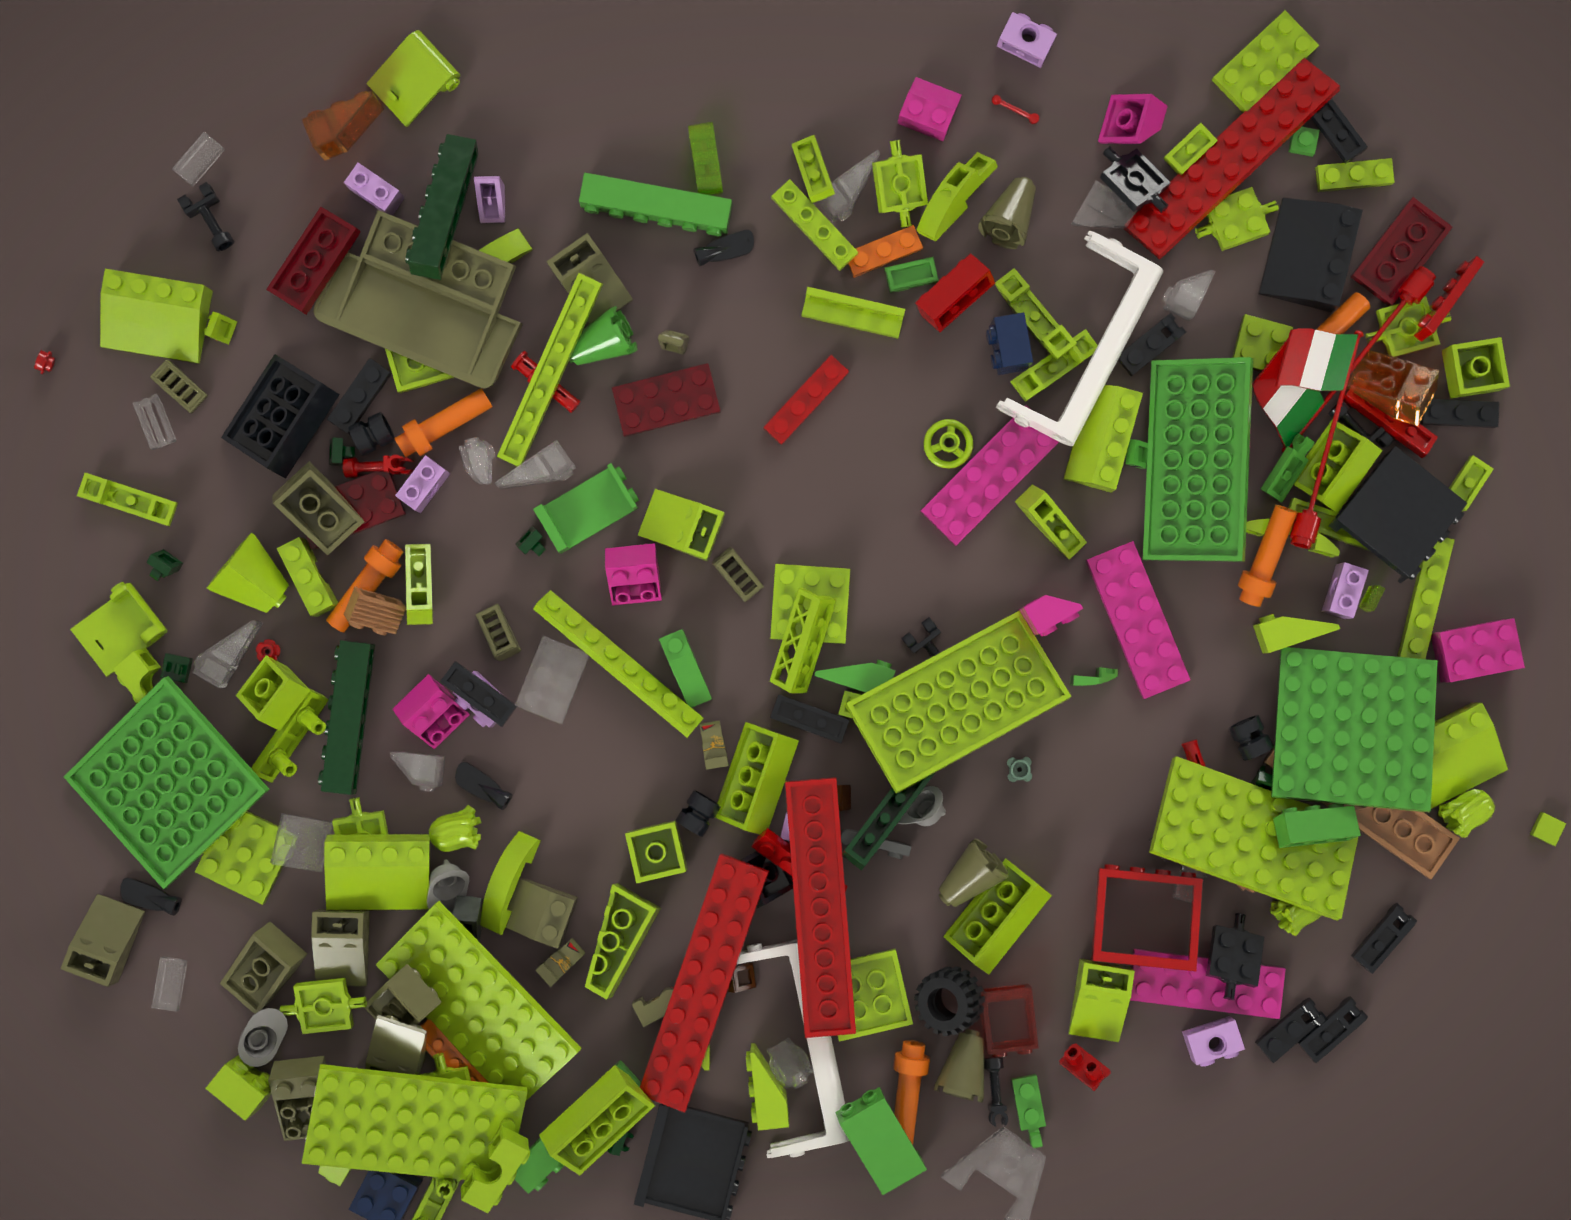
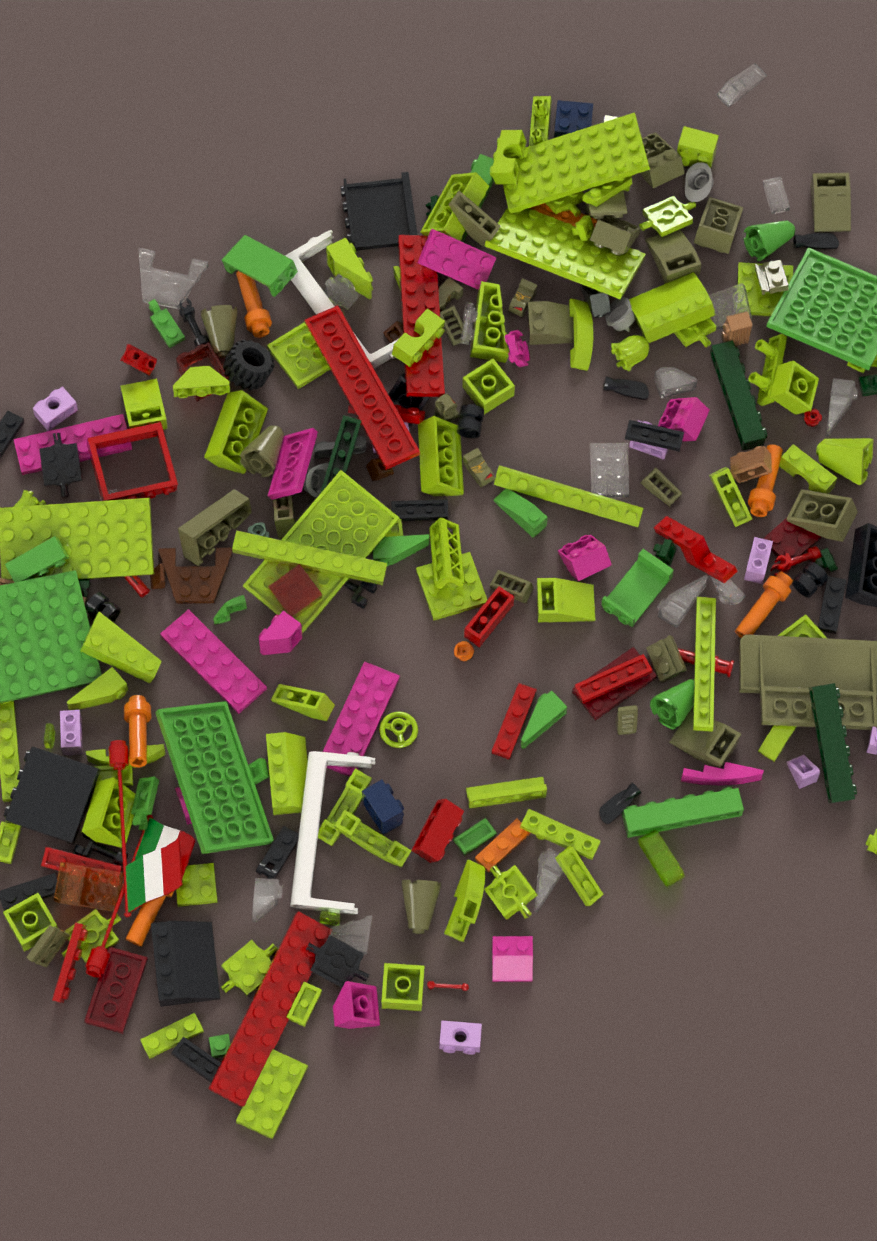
camera: 155 degrees right, 20 degrees down
(140, 1164) = (740, 85): none -> clear slope
(209, 921) = (766, 238): none -> bright green cone
(230, 859) = (771, 277): none -> plate
(307, 804) = (737, 328): none -> medium nougat brick
(400, 1060) = (604, 192): none -> lime plate
(440, 1025) = (583, 228): none -> lime tile
(494, 525) = (695, 549): none -> red bracket
(577, 226) = (730, 775): none -> dark pink slope
(581, 1088) = (473, 219): none -> olive slope
(591, 402) = (666, 658): none -> olive plate
(597, 888) = (518, 350): none -> dark pink plate
(626, 1043) = (456, 259): none -> dark pink plate
(641, 954) = (469, 316): none -> clear plate
(664, 937) = (452, 310): none -> olive slope
(667, 396) = (613, 678): none -> red plate
(703, 950) = (409, 348): none -> lime arch
(722, 840) = (446, 408): none -> olive leg
(769, 388) = (546, 713): none -> bright green slope
(784, 538) = (489, 616): none -> red brick
(830, 511) = (464, 651): none -> orange tile
(946, 838) = (292, 463): none -> dark pink plate
(978, 785) = (284, 515): none -> olive slope
(980, 691) = (309, 557): none -> lime brick
(1012, 656) = (295, 591): none -> clear red brick
(1022, 996) = (200, 382): none -> lime slope
(1071, 119) = (402, 987): none -> lime brick
(1074, 795) = (212, 525): none -> olive wedge
(1122, 236) = (330, 918): none -> clear neon green tile
(1122, 732) = (195, 583): none -> reddish brown wing
(1164, 756) = (158, 578): none -> reddish brown slope
(1254, 670) = (117, 648): none -> lime wedge
(1467, 328) = (48, 946): none -> olive plate

